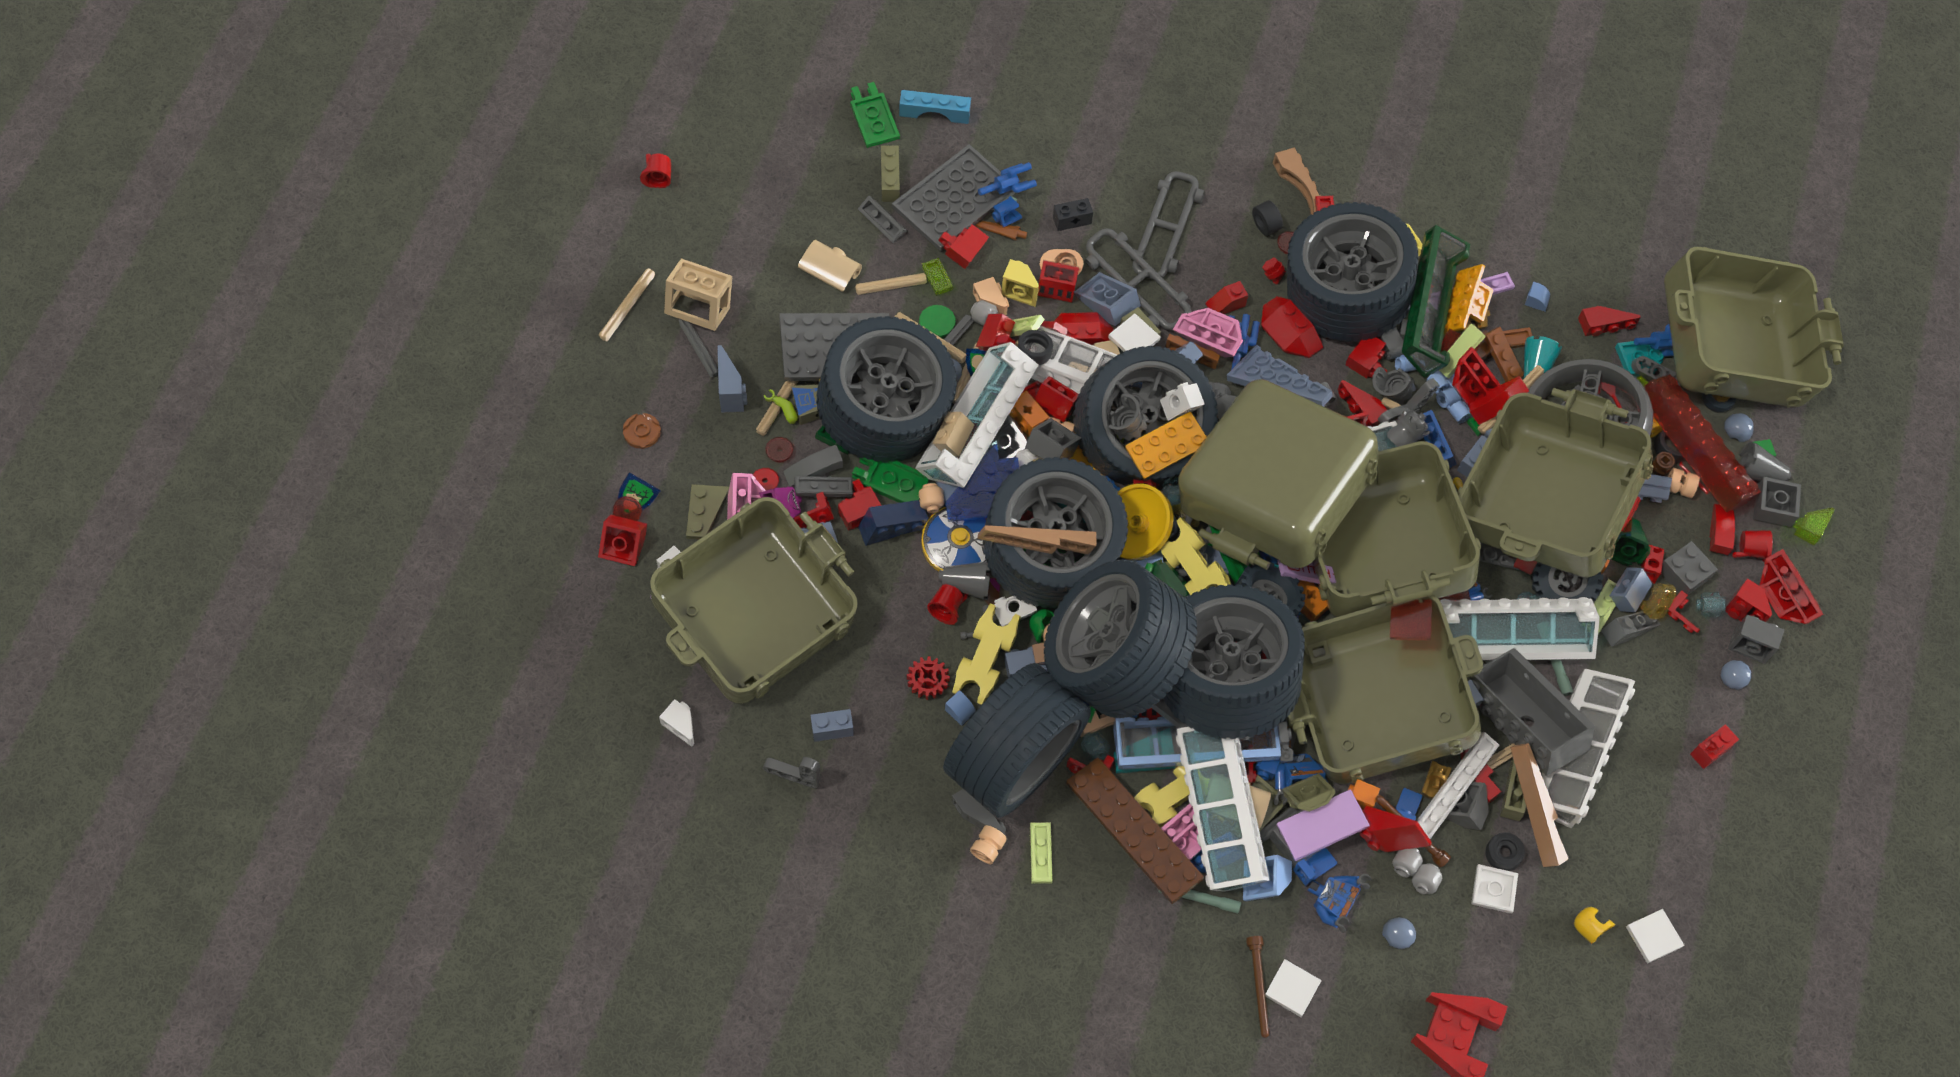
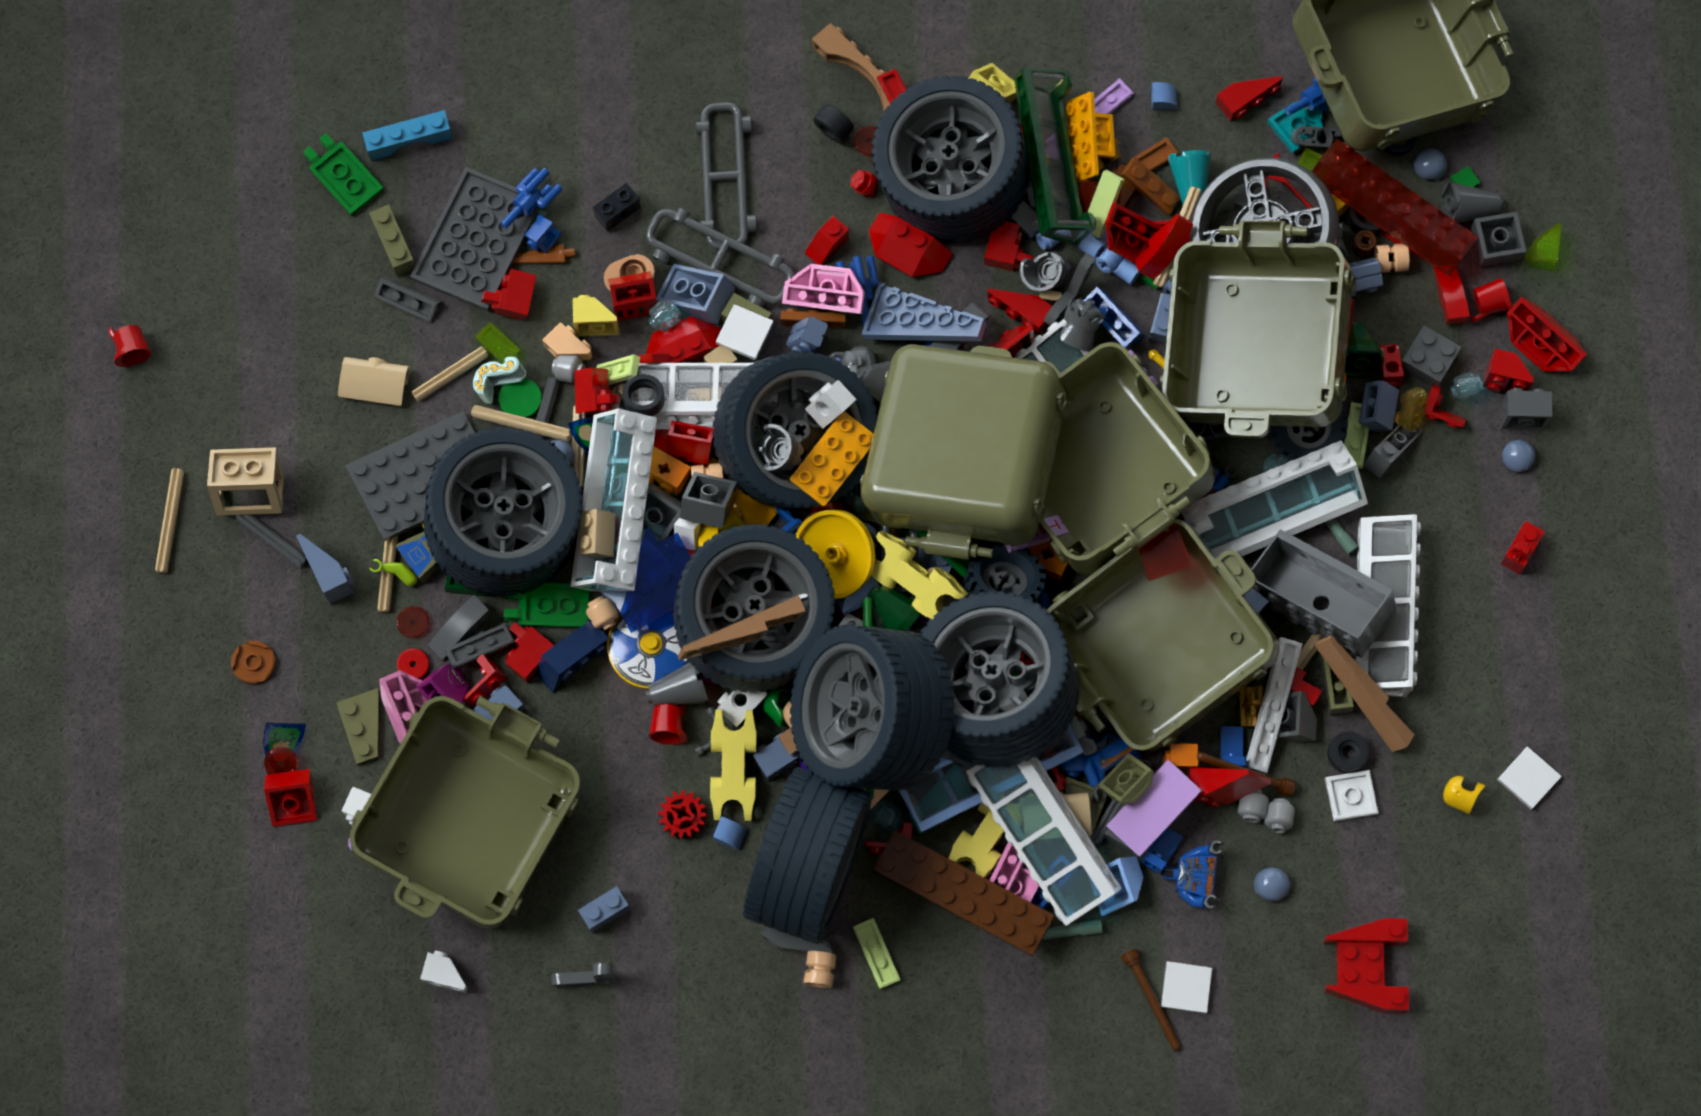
camera: 15 degrees left, 10 degrees up
(926, 295) = (496, 374): none -> light aqua animal
(1076, 302) = (664, 315): none -> clear light blue head

